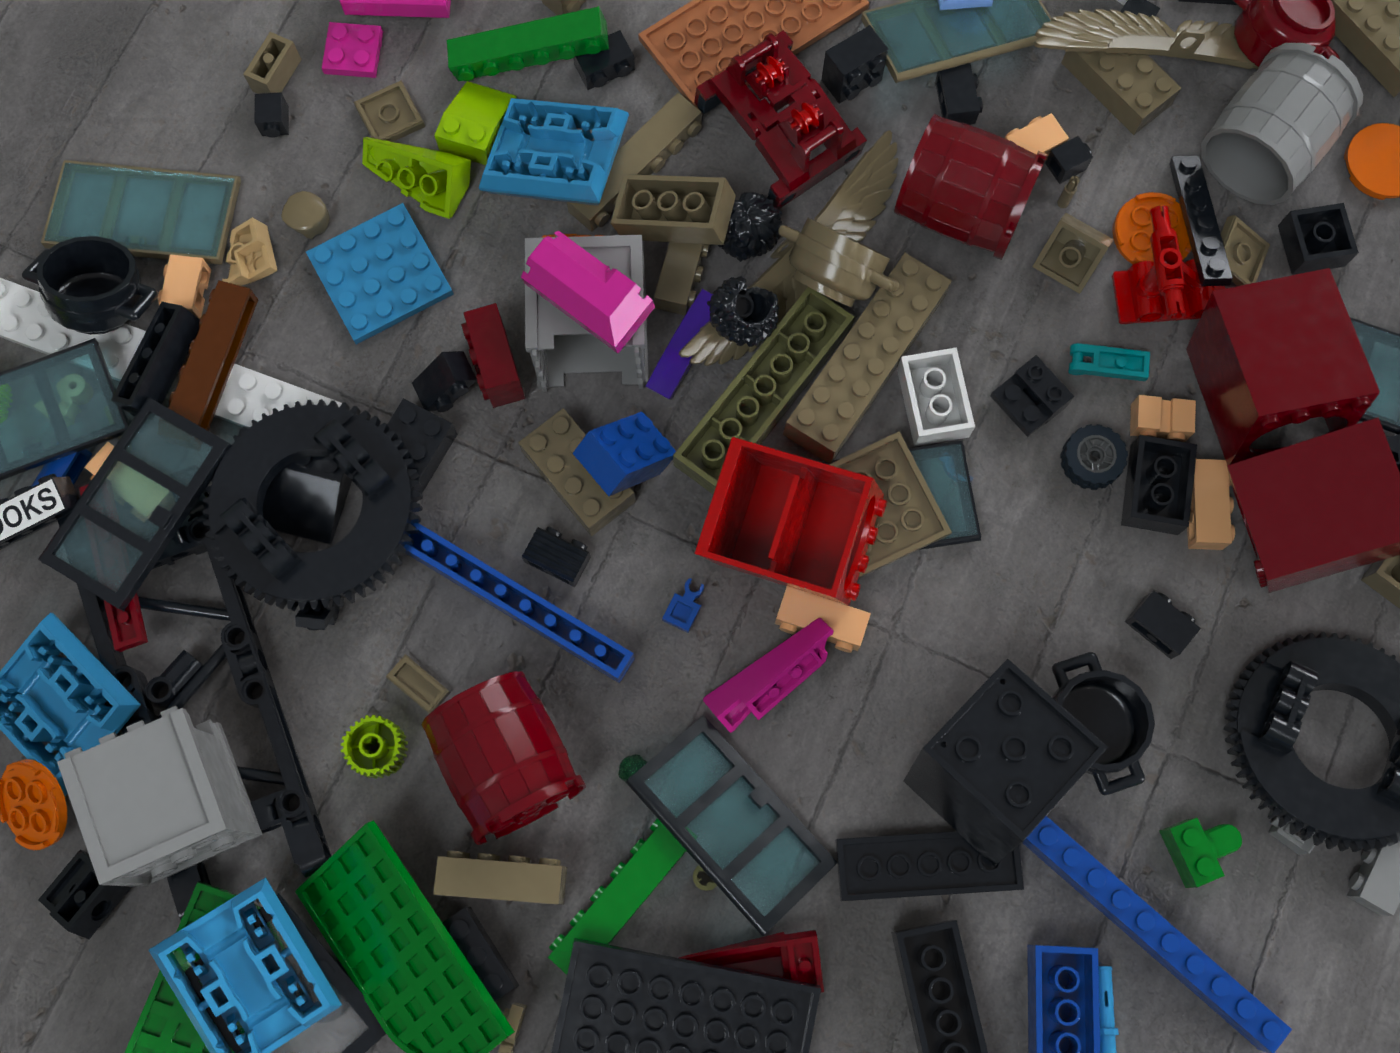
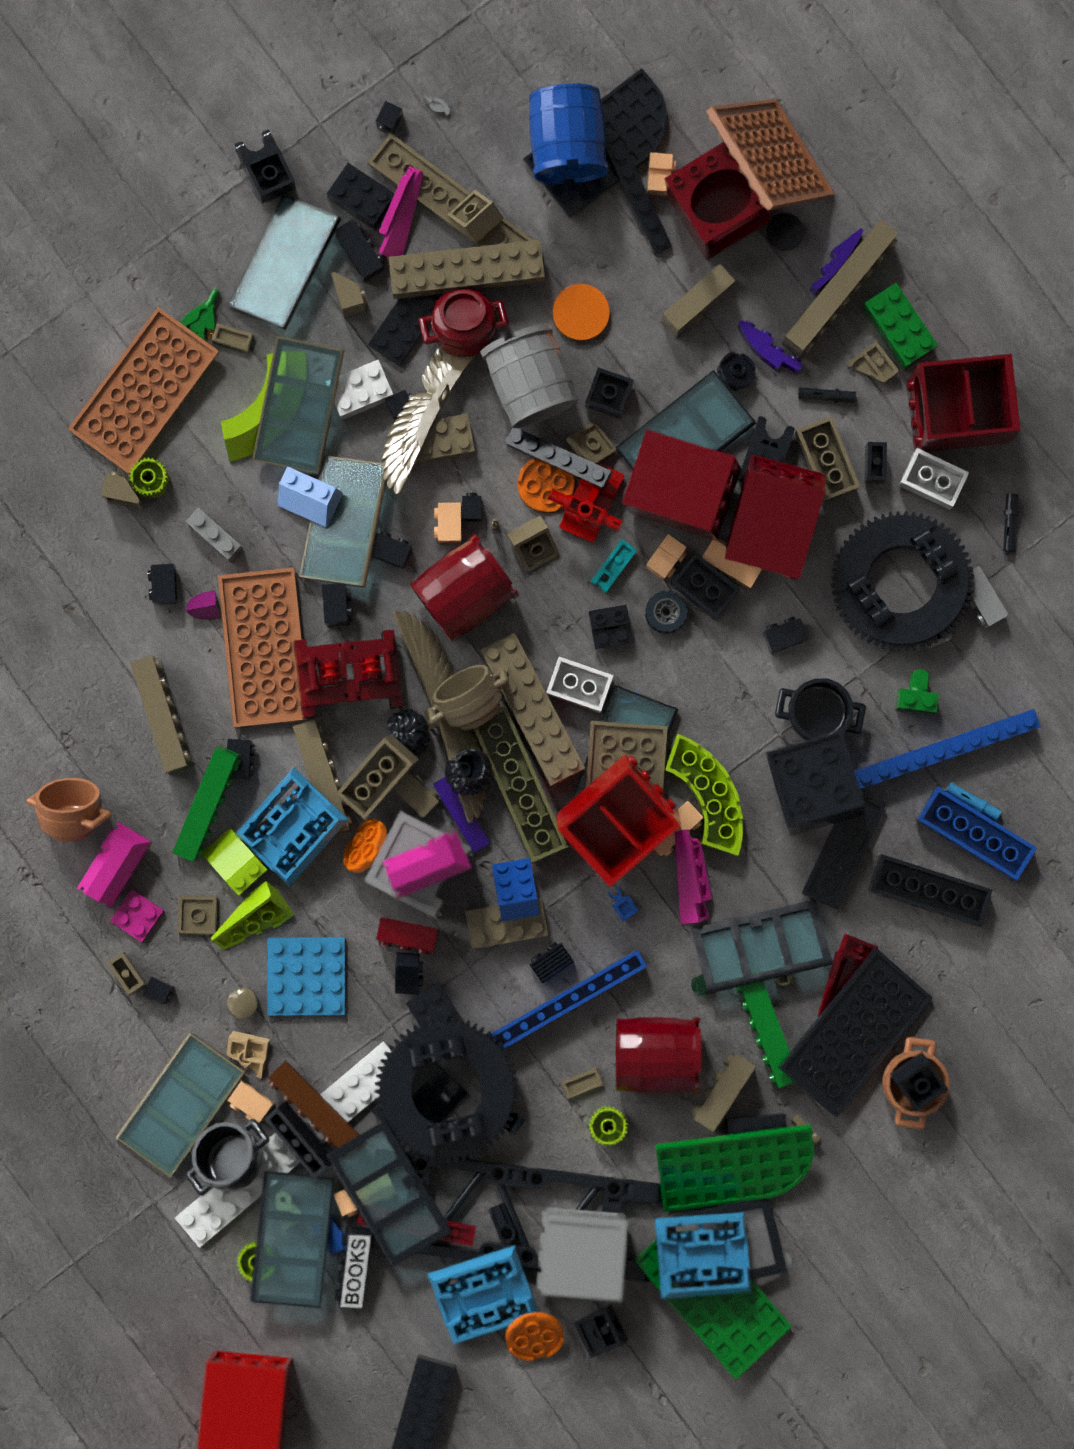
camera: 65 degrees left, 10 degrees up
(902, 643) = (713, 791): none -> lime brick

